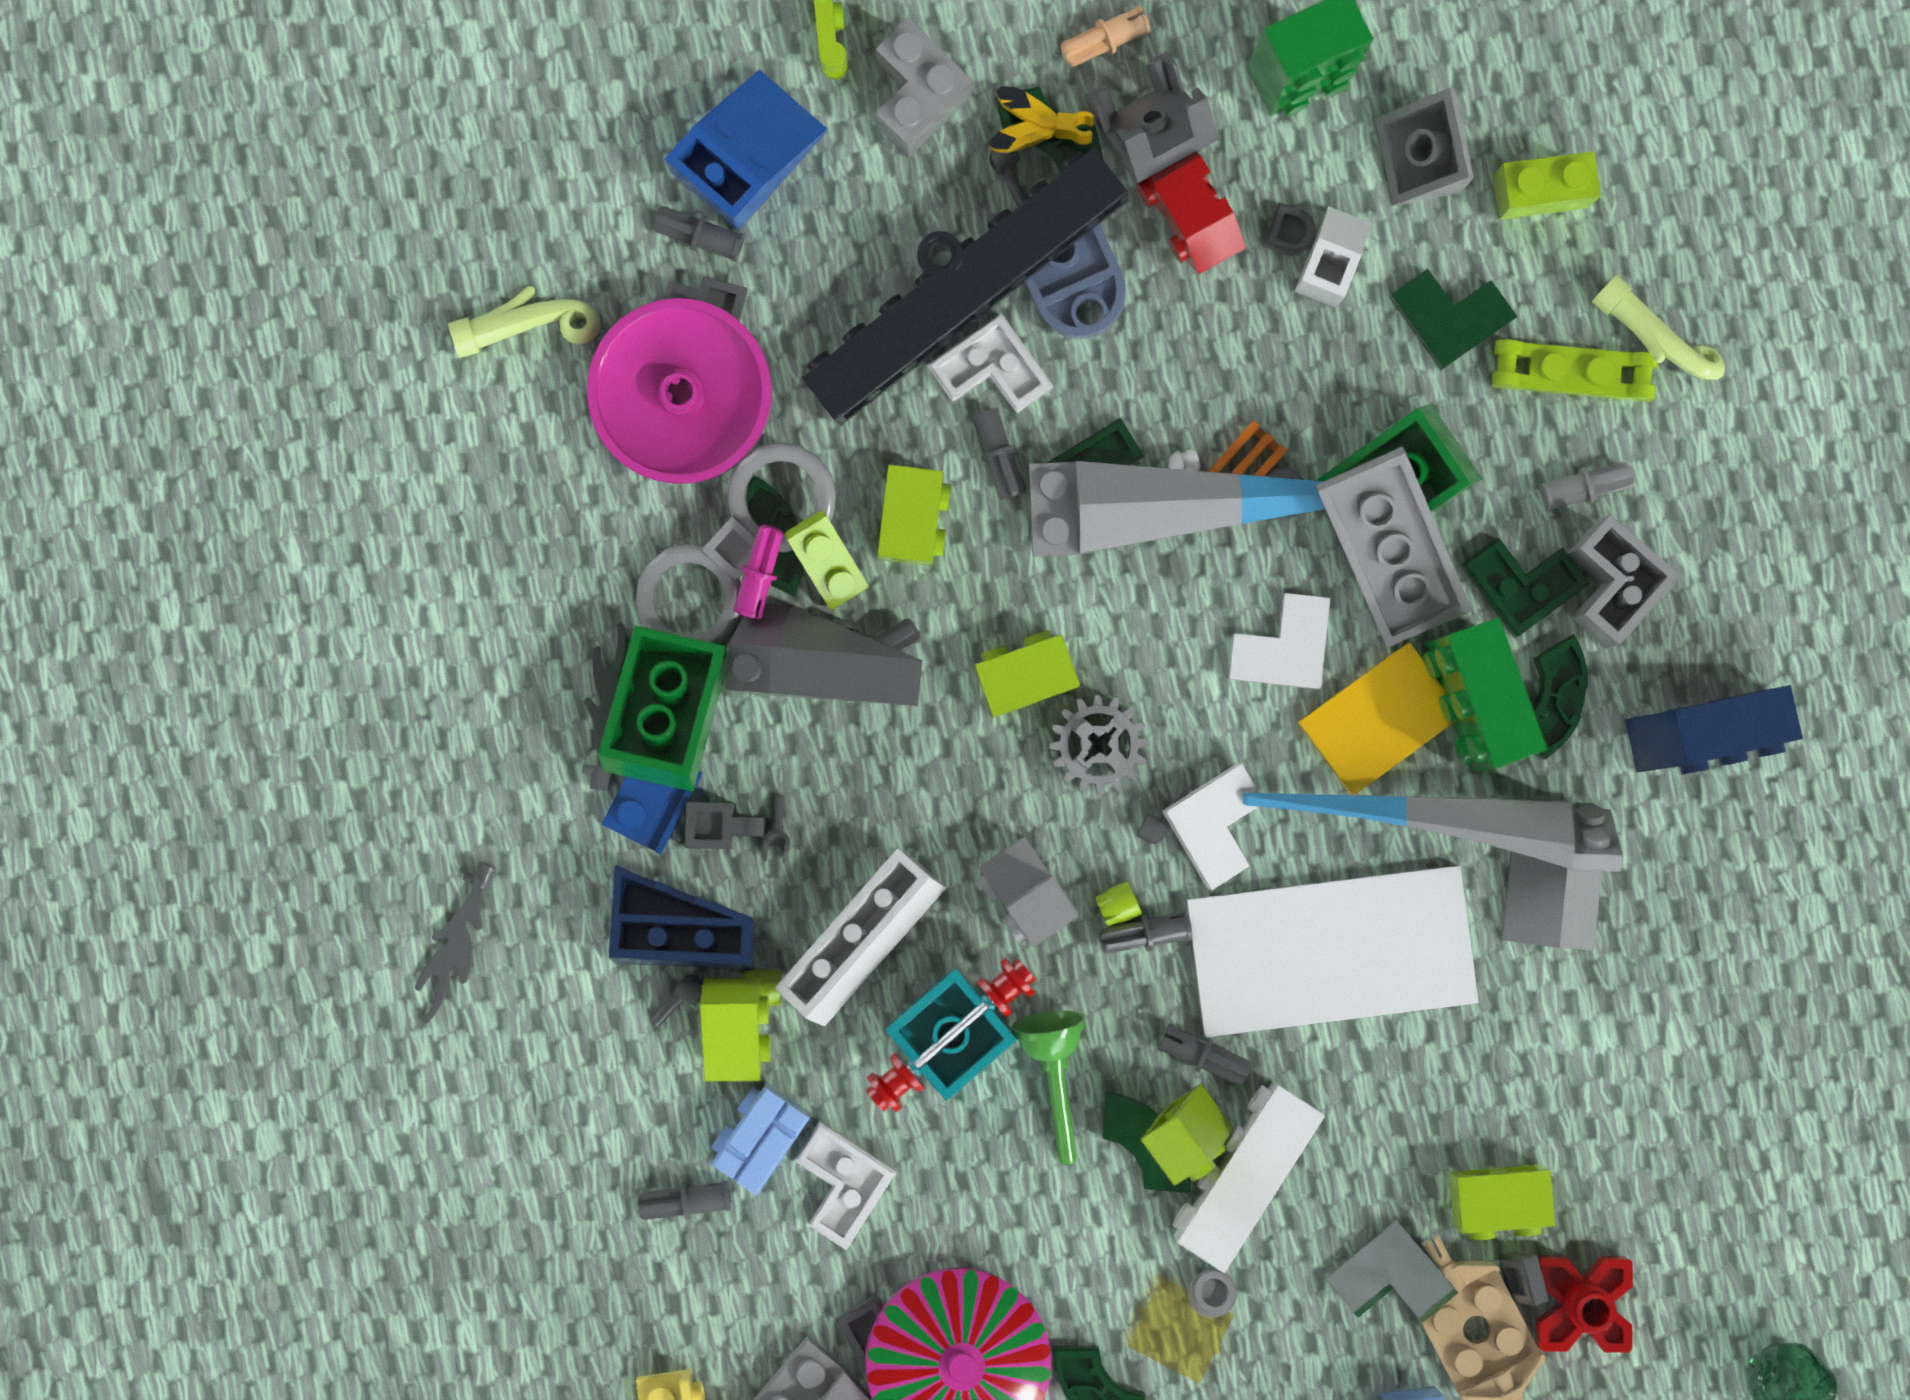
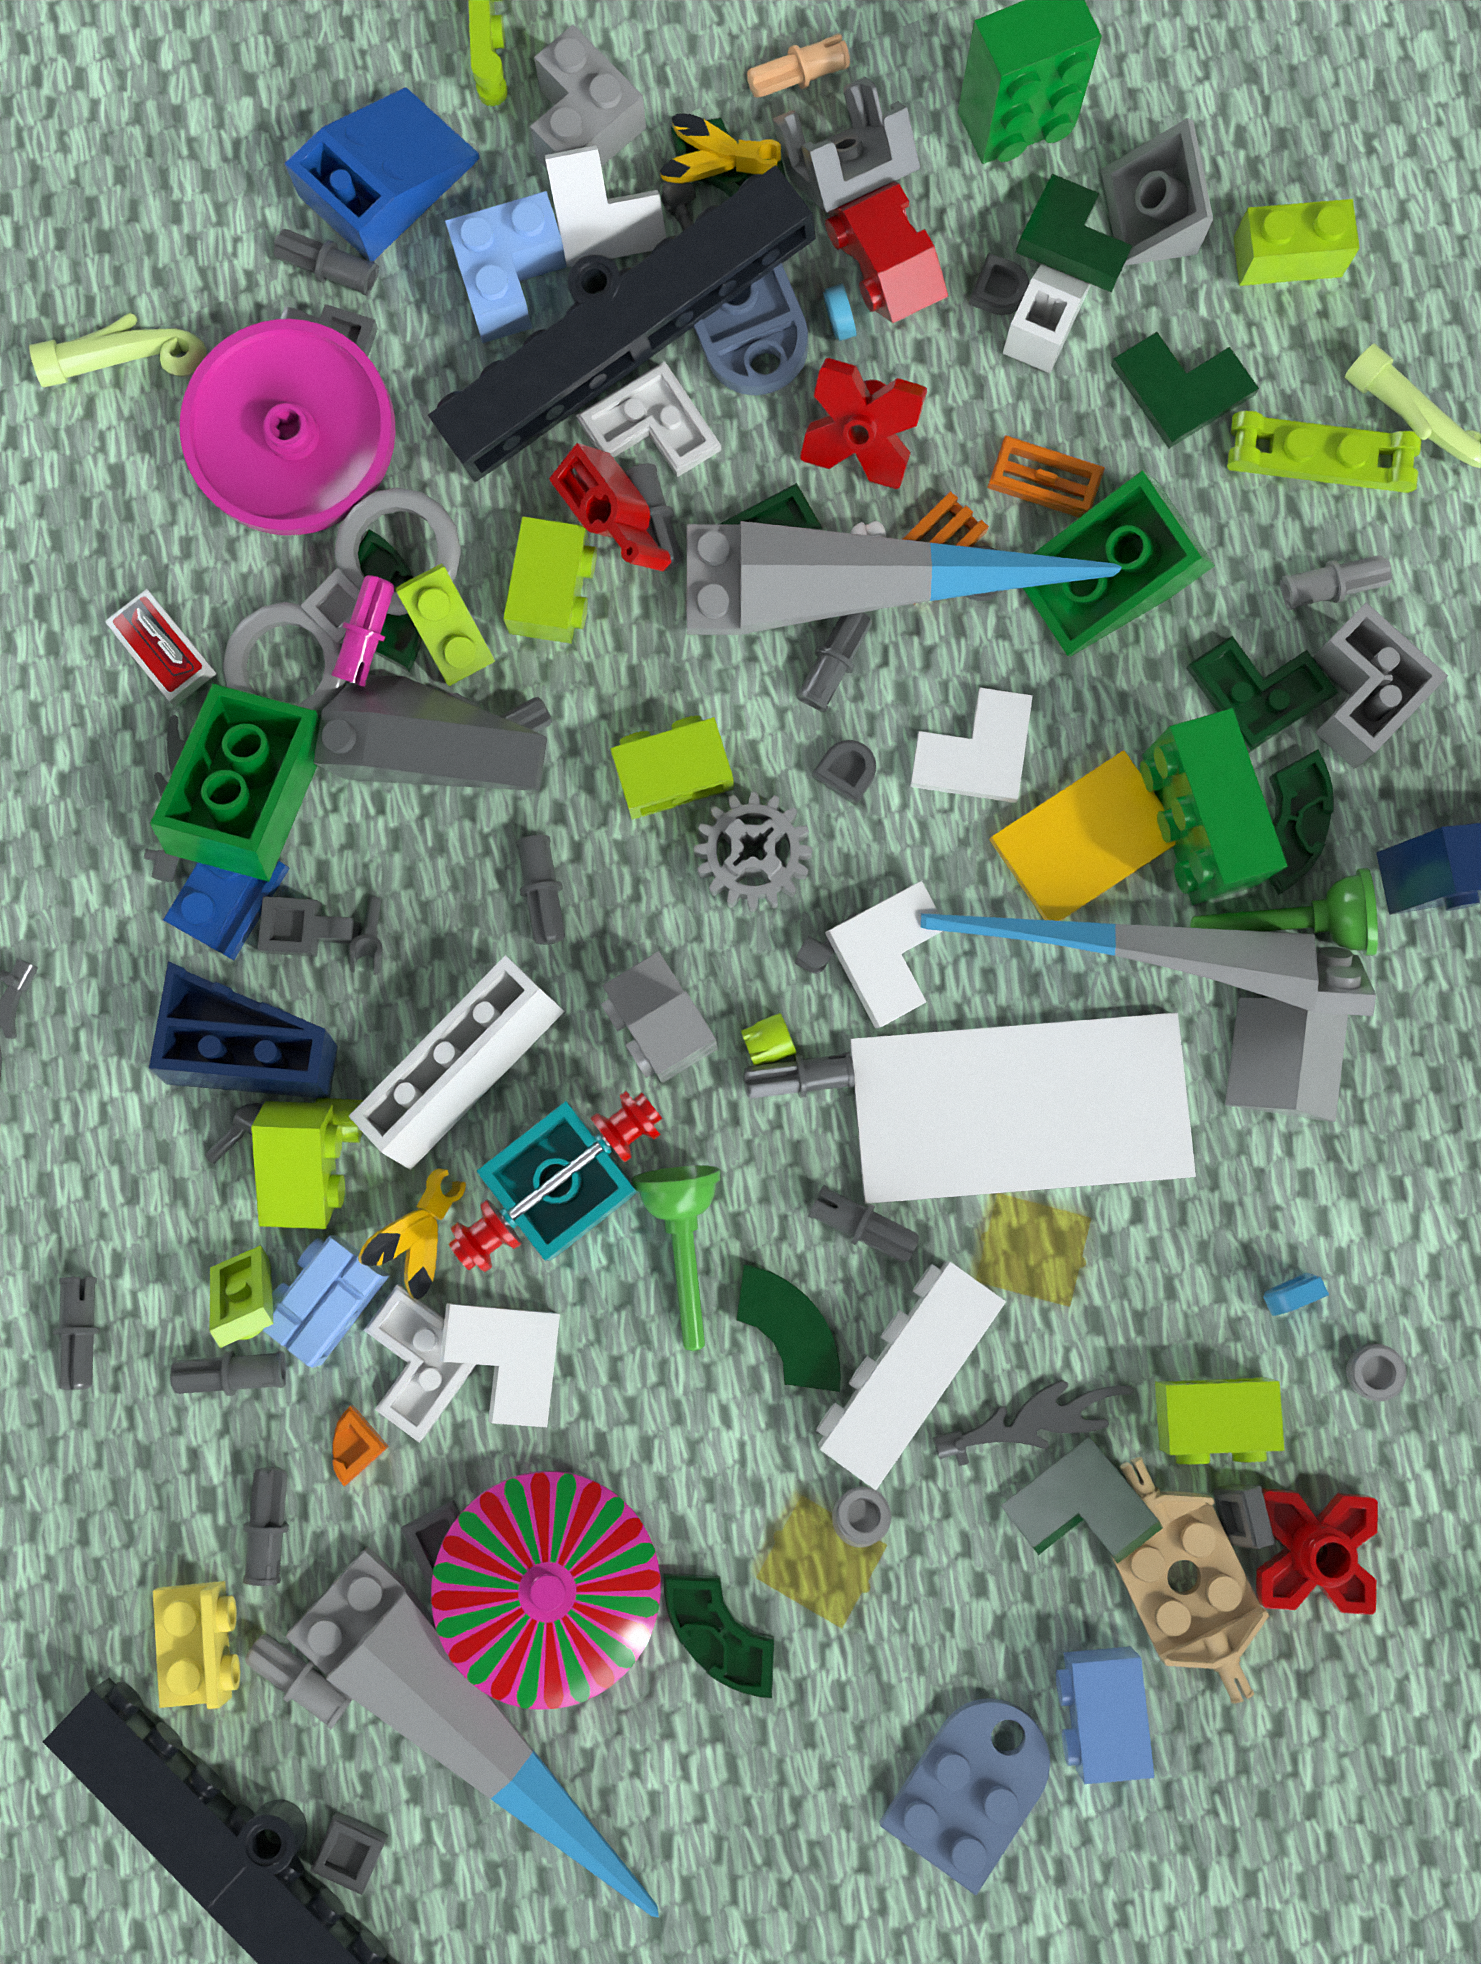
camera: 10 degrees right, 5 degrees down
(556, 1174) = (76, 1333): none -> dark grey axle
(580, 587) = (160, 647): none -> slope
(694, 1139) = (240, 1297): none -> lime plate
(724, 1324) = (266, 1527): none -> dark grey axle
(792, 1255) = (354, 1445): none -> orange tile
(834, 1080) = (416, 1235): none -> yellow piece
(848, 223) = (497, 252): none -> light blue brick
(920, 784) = (541, 889): none -> dark grey axle
(923, 1168) = (519, 1347): none -> white tile
(938, 194) = (591, 221): none -> white tile
(962, 451) = (608, 504): none -> red piece
(1151, 263) = (839, 312): none -> medium azure tile
(1159, 574) = (834, 660): none -> dark grey axle
(1174, 668) = (847, 769): none -> dark grey tile
(1177, 363) = (863, 422): none -> red plant
(1188, 1136) = (838, 1319): lime brick -> none
(1330, 419) = (1039, 495): none -> orange tile
(1343, 193) = (1062, 241): none -> dark green tile
(1345, 1068) = (1033, 1249): none -> clear yellow piece
(1352, 1203) = (1036, 1413): none -> dark grey piece
(1394, 547) = (1109, 631): light grey plate -> none
(1562, 1096) = (1295, 1293): none -> dark azure tile
(1598, 778) = (1346, 913): none -> bright green piece
(1630, 1156) = (1376, 1372): none -> light grey tile

